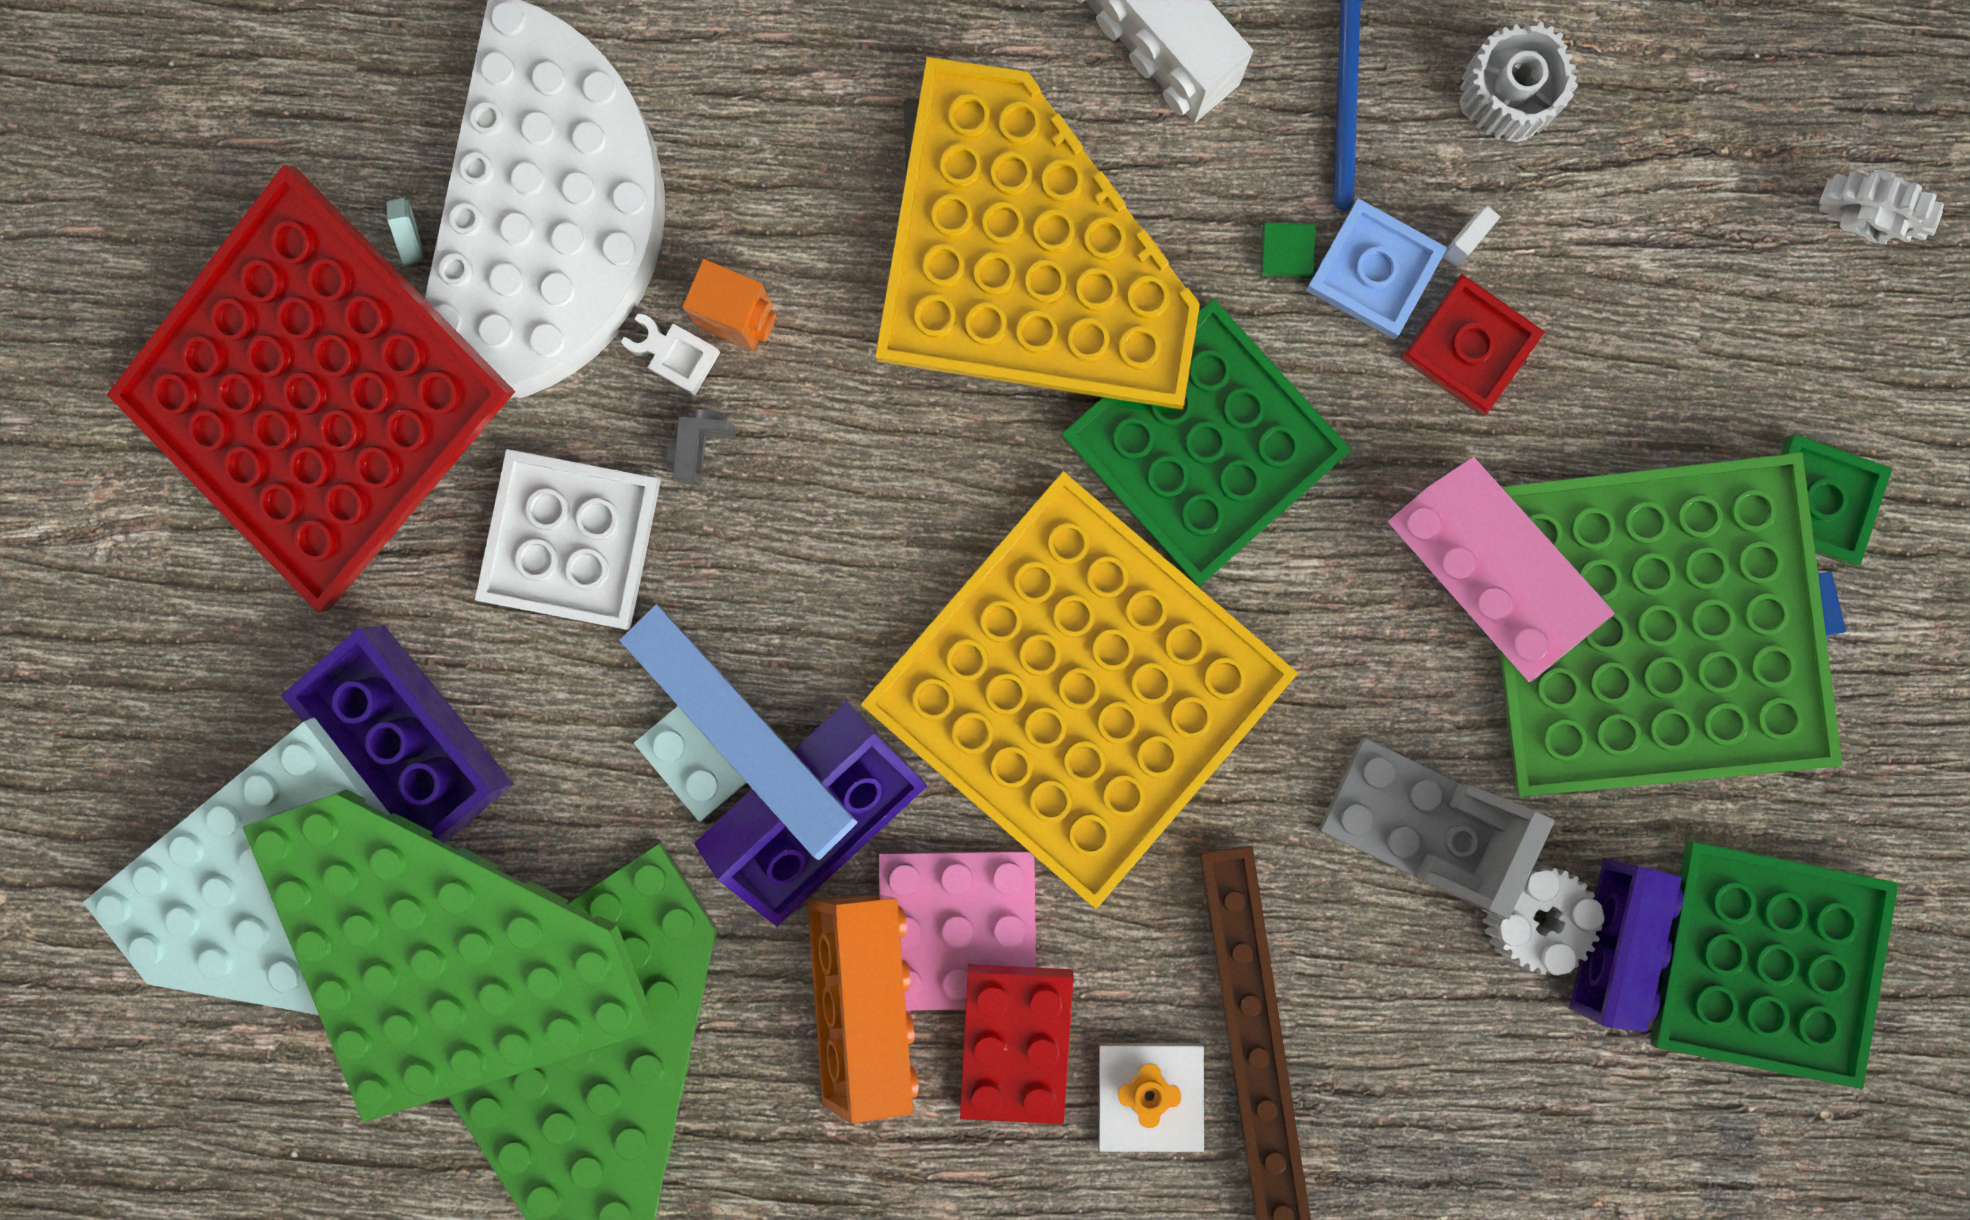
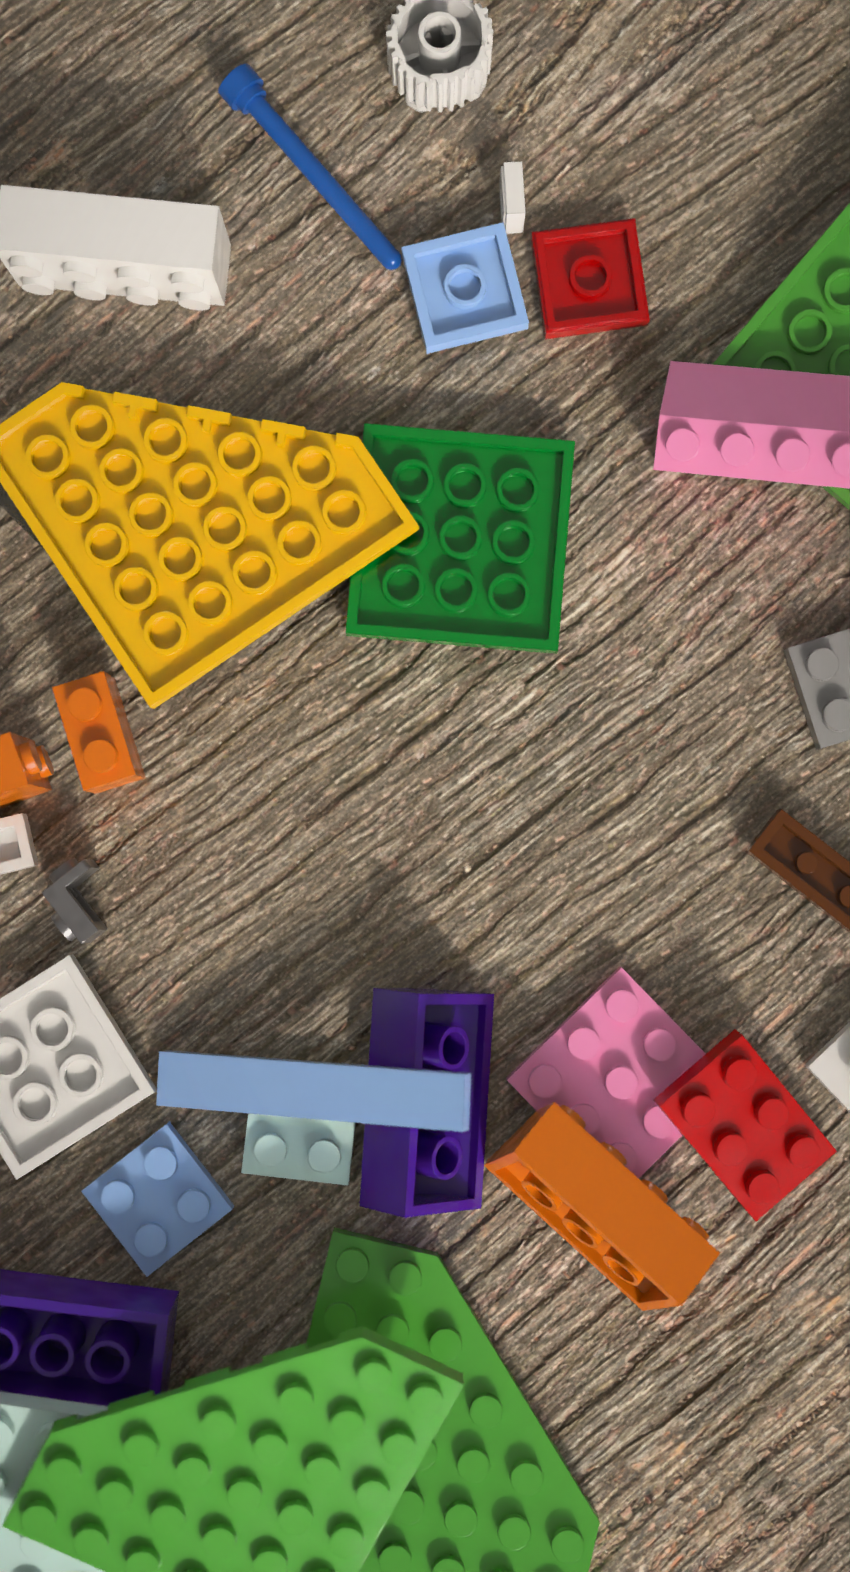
camera: 40 degrees left, 0 degrees up
(559, 706) = (158, 1199): none -> light blue plate
(823, 342) = (98, 732): none -> orange brick
(1079, 689) = (540, 813): yellow plate -> none
(1288, 250) = (385, 335): green tile -> none

